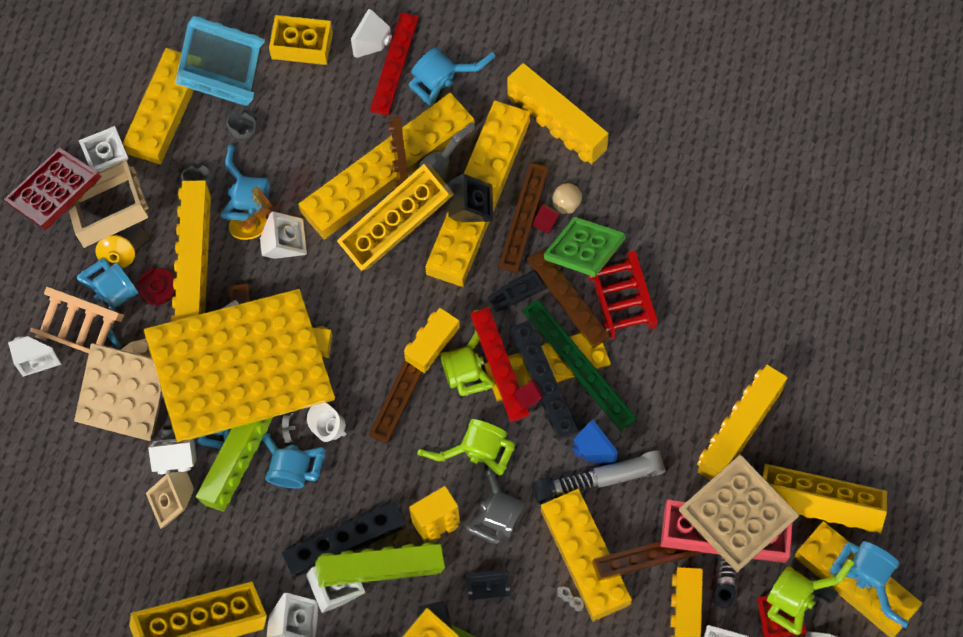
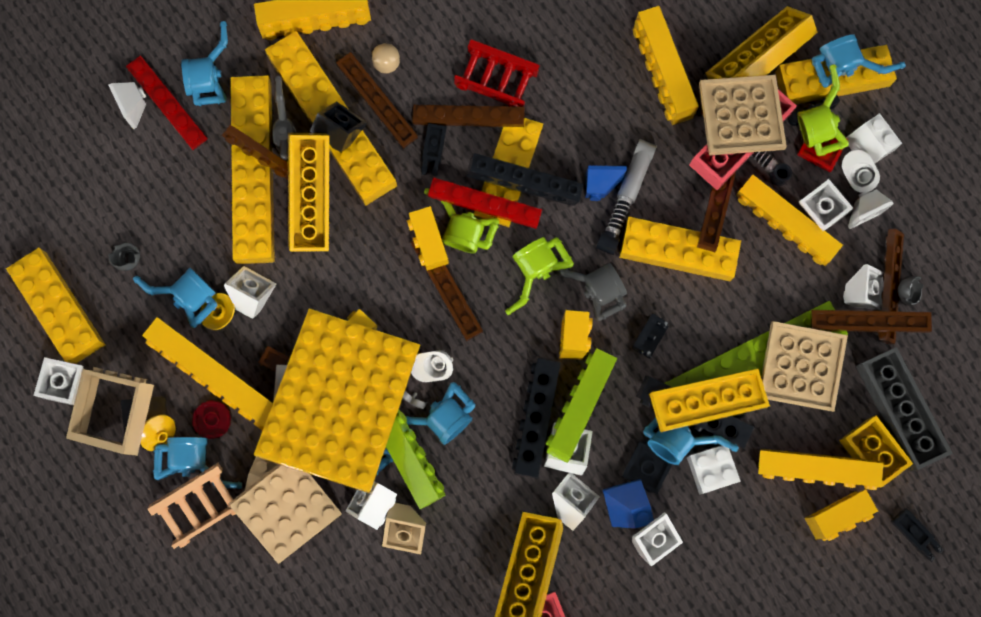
camera: 60 degrees left, 10 degrees up
(32, 356) = (196, 561): white slope -> none
(52, 188) = (59, 446): dark red plate -> none
(167, 432) = (346, 493): dark grey plate -> none
(193, 174) = (135, 324): dark grey hair -> none
(218, 60) = (52, 234): panel -> none
(260, 199) = (206, 285): clear orange bracket -> none
(301, 40) = (87, 157): yellow brick -> none
(529, 395) = (530, 198): dark red slope -> none
(546, 219) = (391, 84): dark red slope -> none
(566, 595) = (707, 283): light grey piece -> none
(579, 365) = (530, 146): dark green tile -> none
(584, 246) = (439, 72): bright green plate -> none

